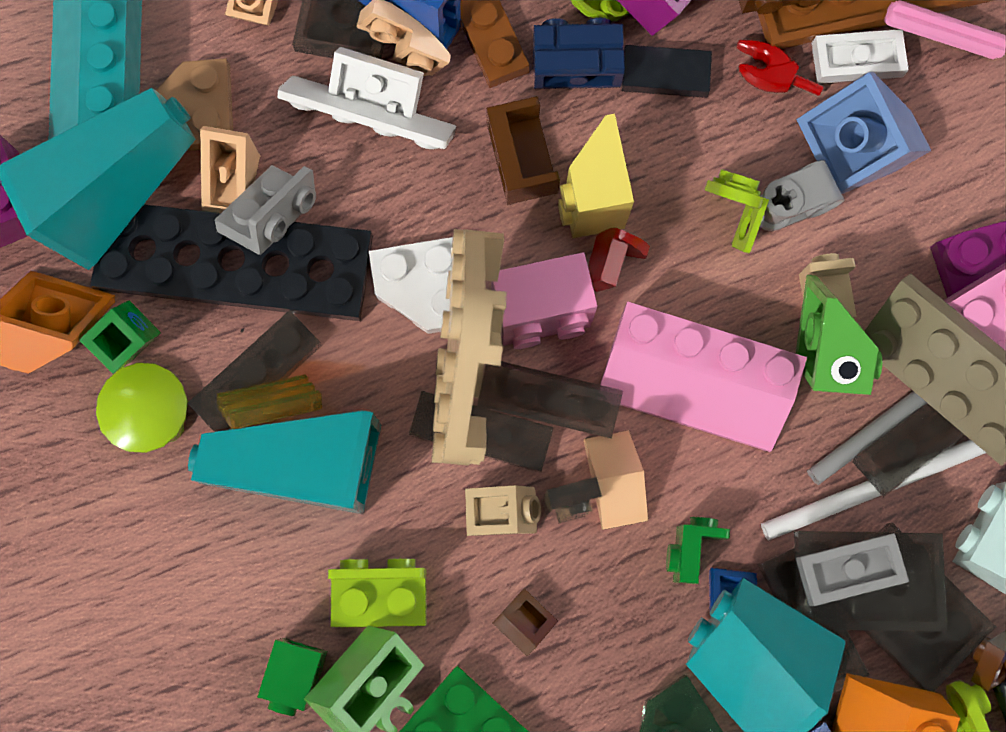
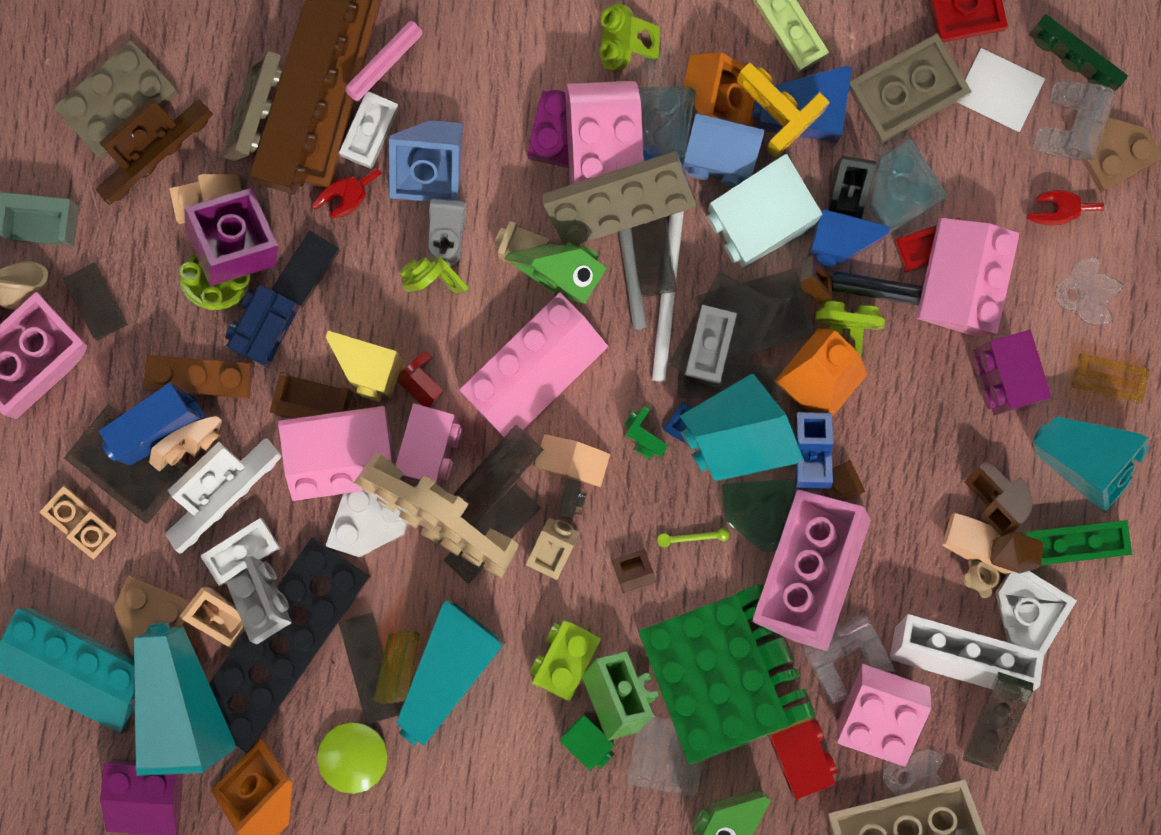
camera: 65 degrees left, 5 degrees up
(120, 336) = (297, 747): green brick -> none
(332, 168) = (229, 556): none -> white plate
(480, 188) = (331, 449): none -> bright pink slope
(625, 707) = (722, 534): none -> lime hinge

